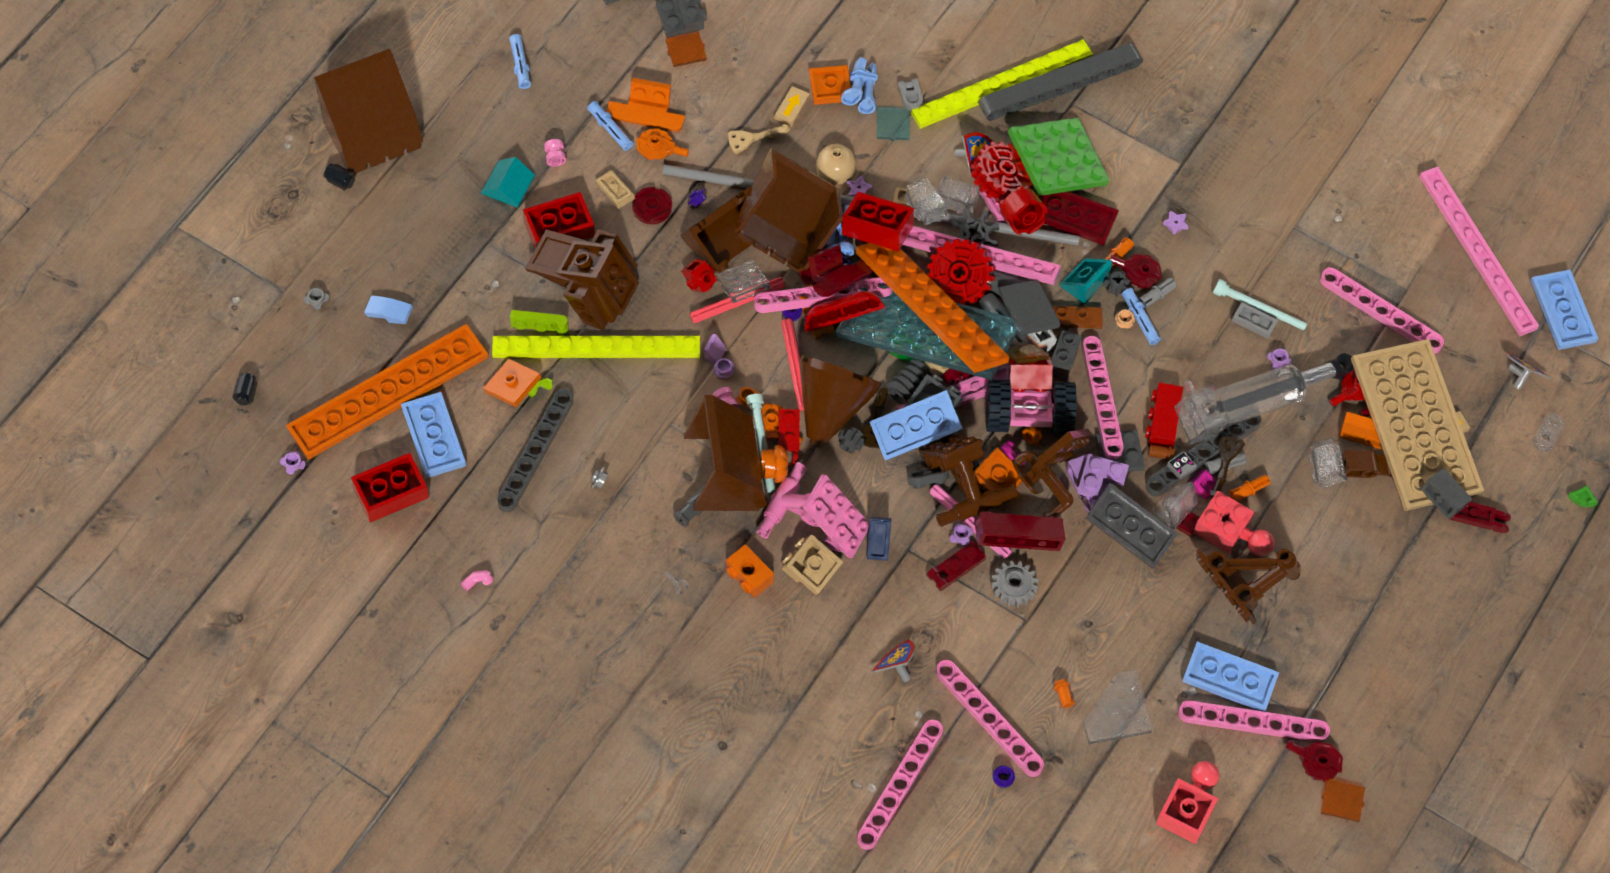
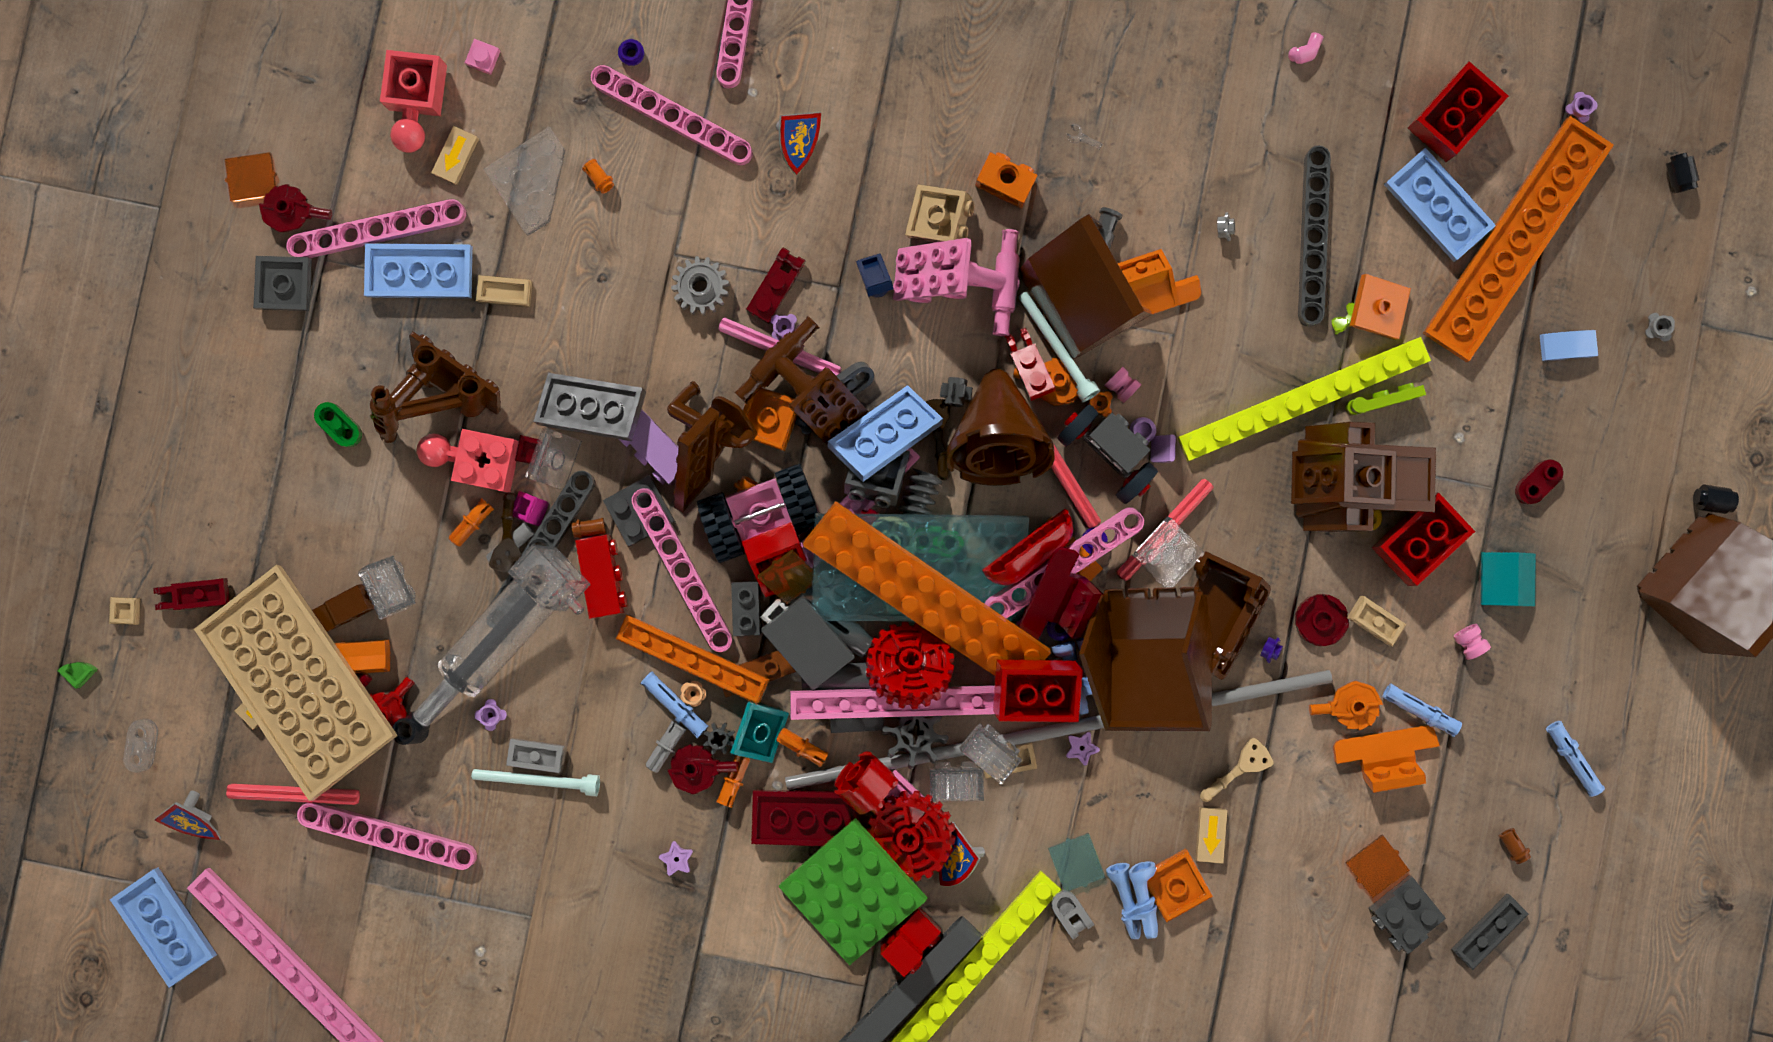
camera: 165 degrees right, 25 degrees up
(455, 234) = (1539, 479): none -> dark red plate
(587, 21) = (1515, 846): none -> dark orange pin
(674, 460) = (1154, 282): none -> orange plate
(699, 276) = (1223, 536): red brick -> none
(751, 359) = (1116, 446): none -> brick
(774, 463) = (1030, 314): orange piece -> none
(836, 164) = (1114, 761): tan cylinder -> none
(1008, 450) = (764, 452): dark pink arm -> none
(1020, 531) = (715, 346): dark red brick -> none
(1036, 109) = (906, 943): none -> red brick
(1058, 257) = (802, 747): none -> orange axle
(1098, 470) = (651, 460): lavender plate -> none
(1117, 338) = (692, 659): none -> orange tile
(1124, 819) = (482, 56): none -> bright pink plate
(1168, 640) = (504, 291): none -> tan tile
(1172, 753) = (455, 155): none -> tan tile
(1182, 465) = (557, 514): tile -> none
(1330, 592) = (338, 425): none -> green plate
(1341, 707) = (282, 283): none -> dark grey plate
(1446, 493) = (232, 597): dark grey hinge -> none
(1455, 365) = (290, 794): none -> coral axle
(1535, 526) = (124, 610): none -> tan tile

